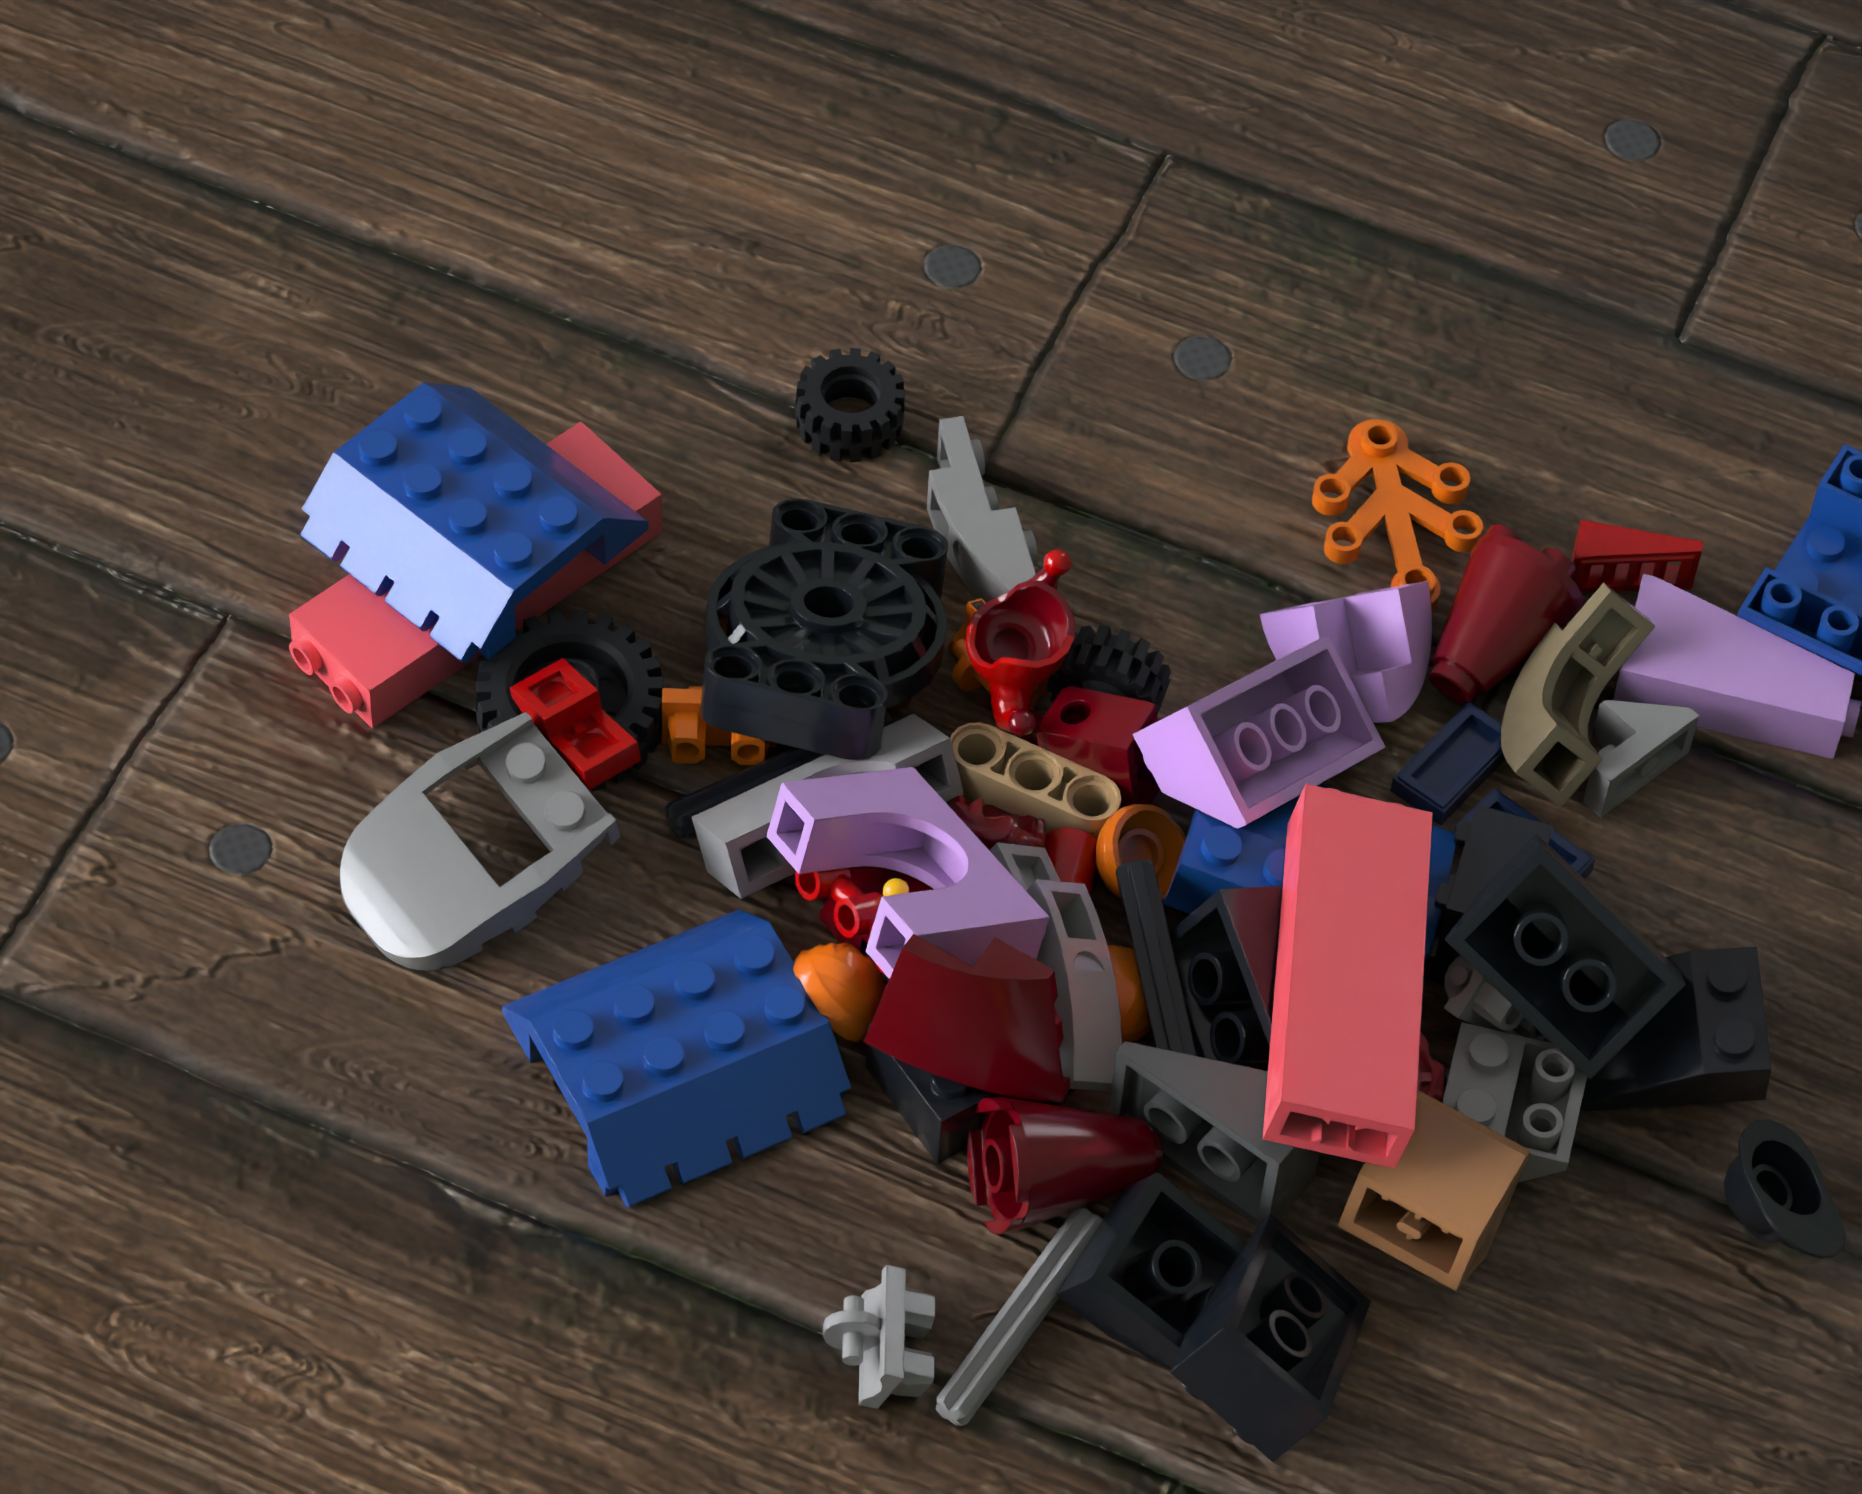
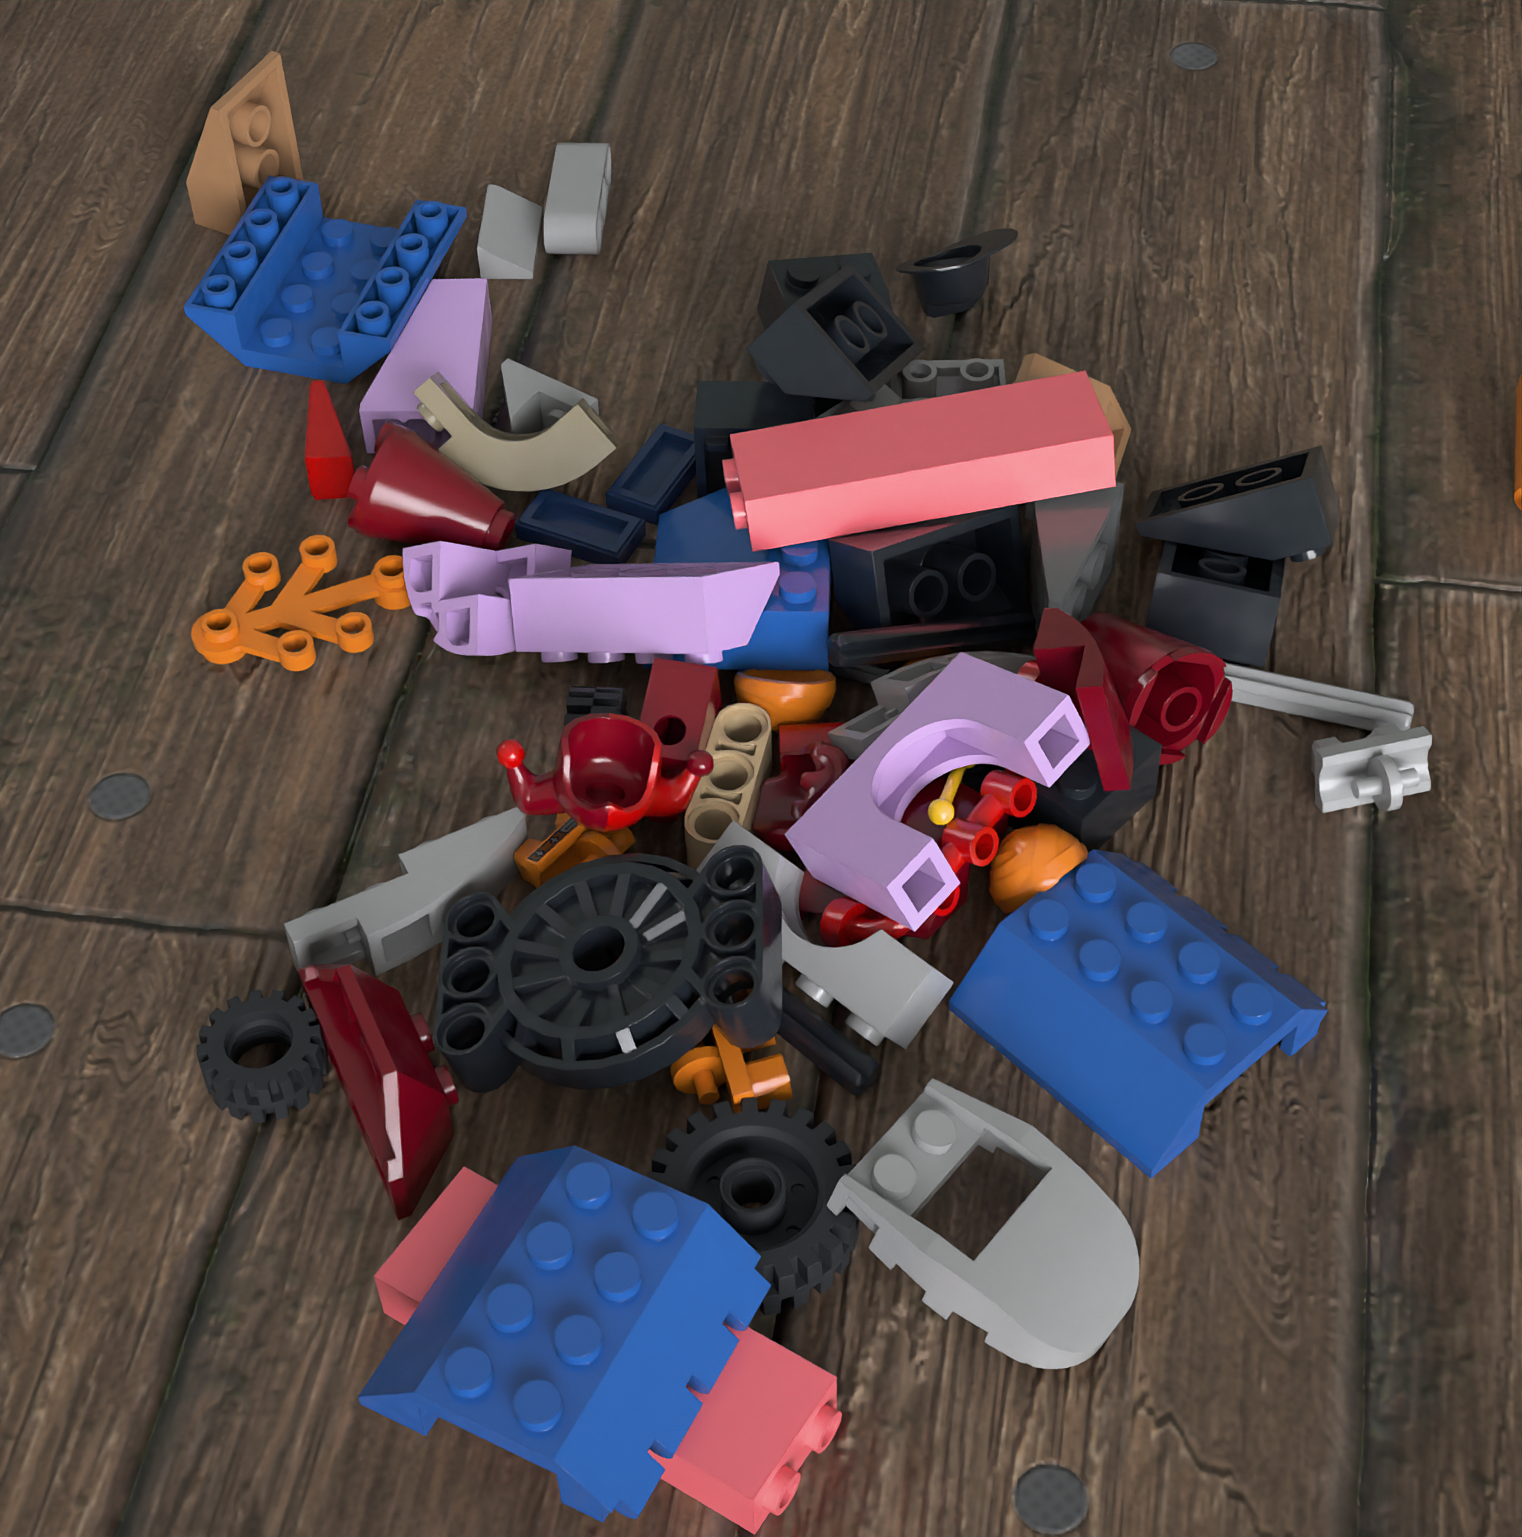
camera: 100 degrees left, 5 degrees down
(573, 722) = (806, 1162): red slope -> none
(756, 461) = (385, 1076): none -> dark red wedge

